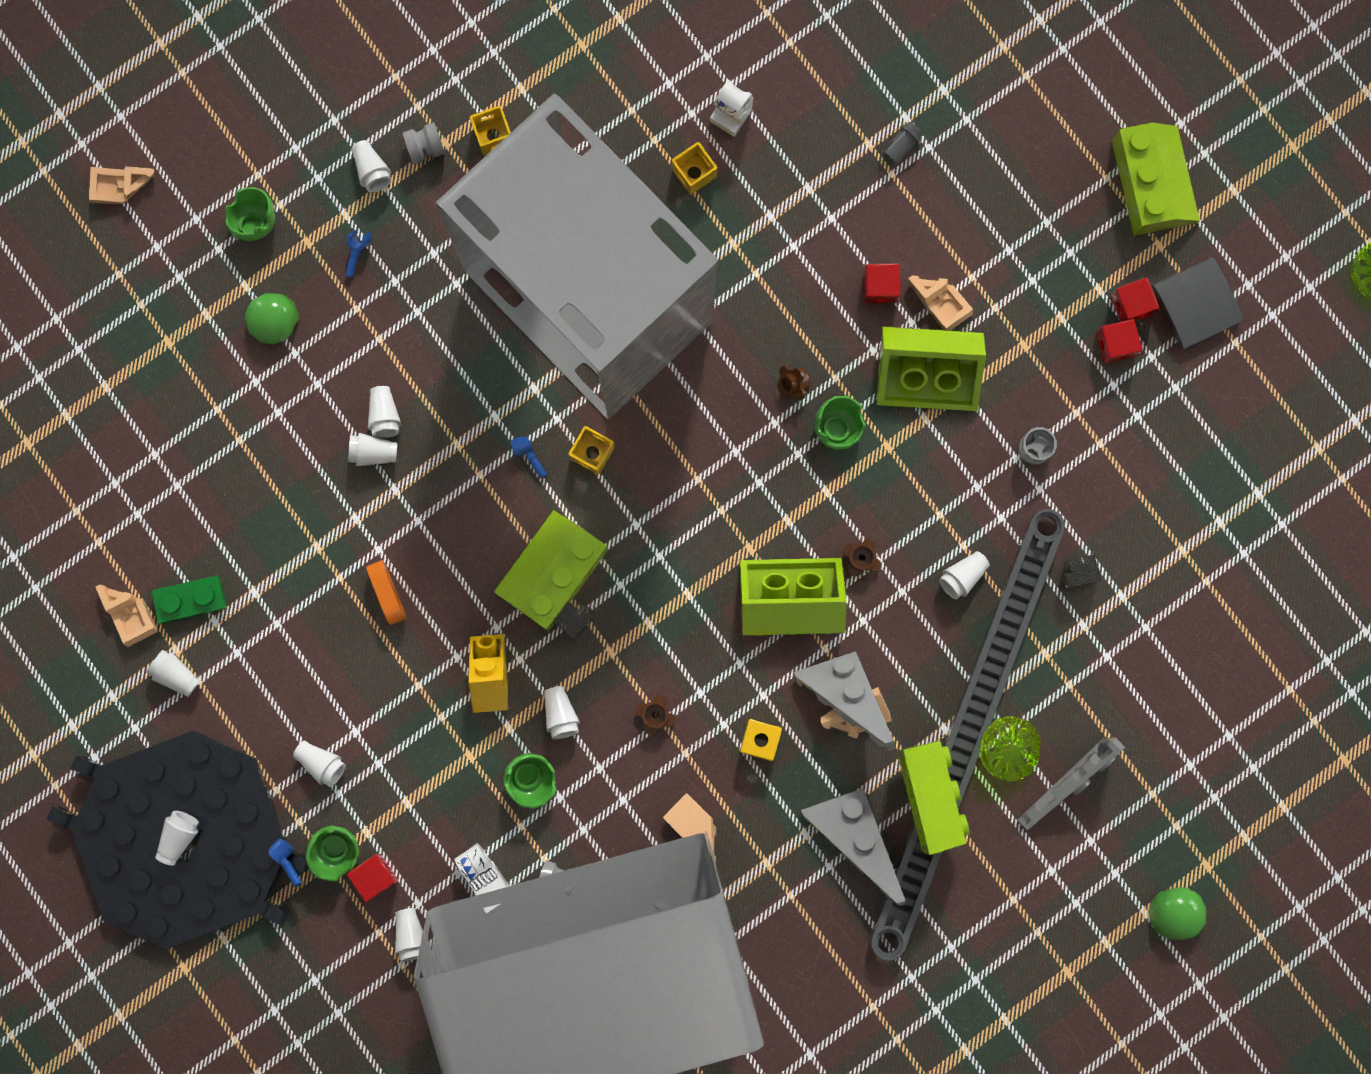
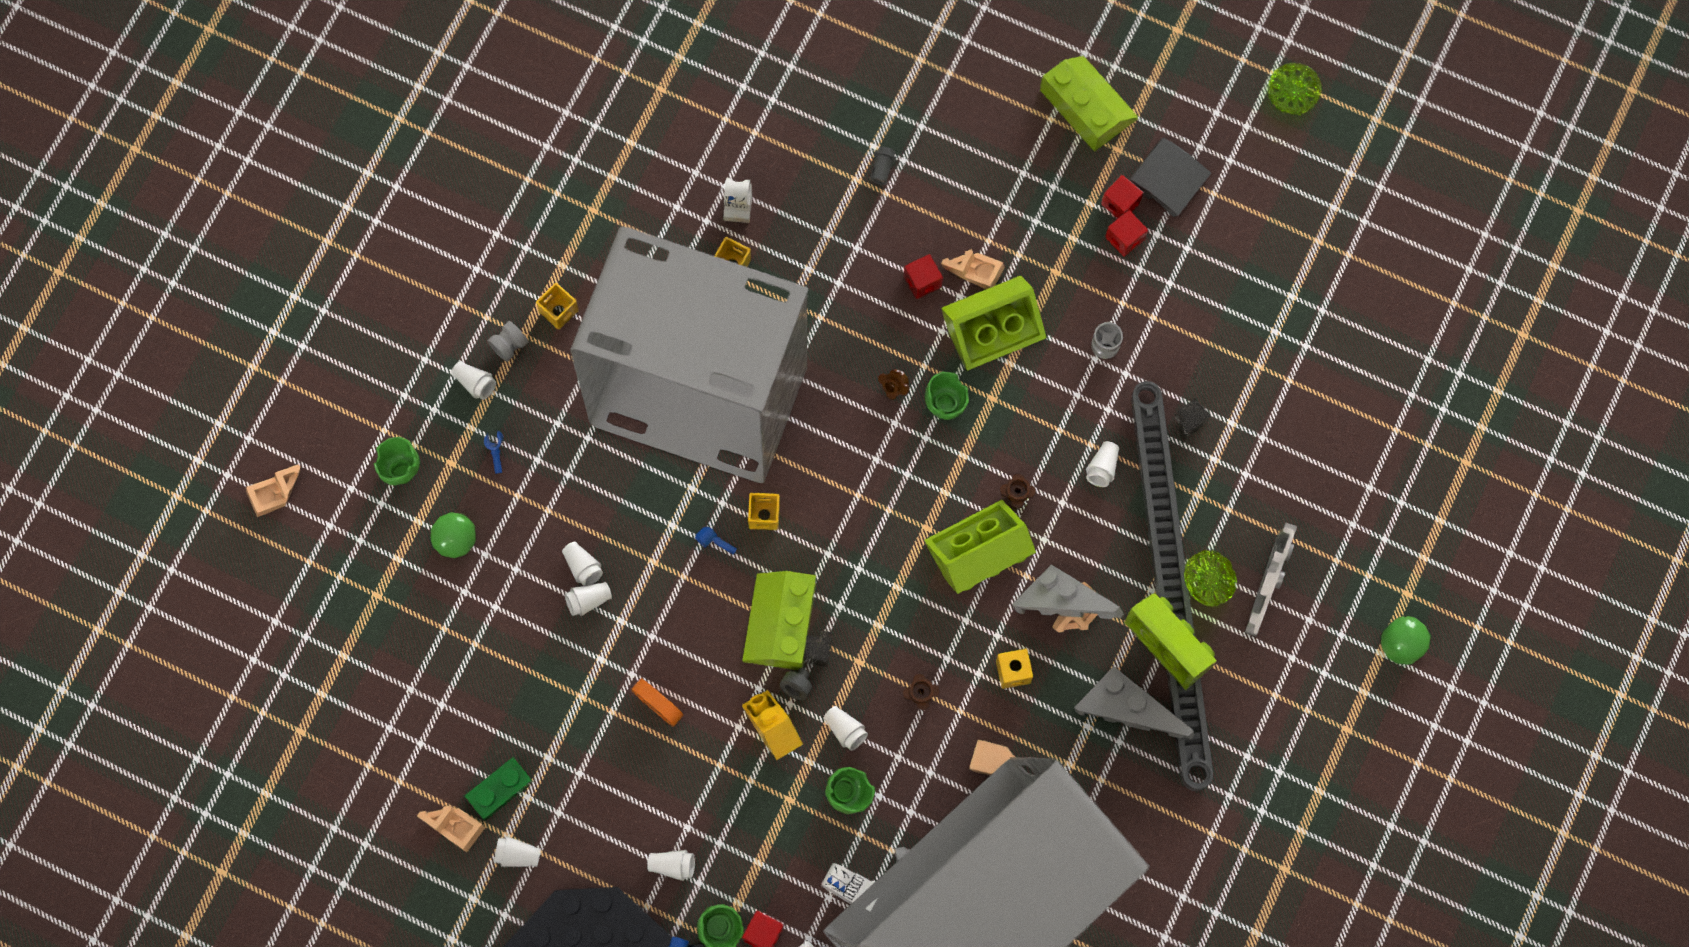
camera: 30 degrees left, 10 degrees down
(534, 645) = (796, 684): none -> dark grey tile

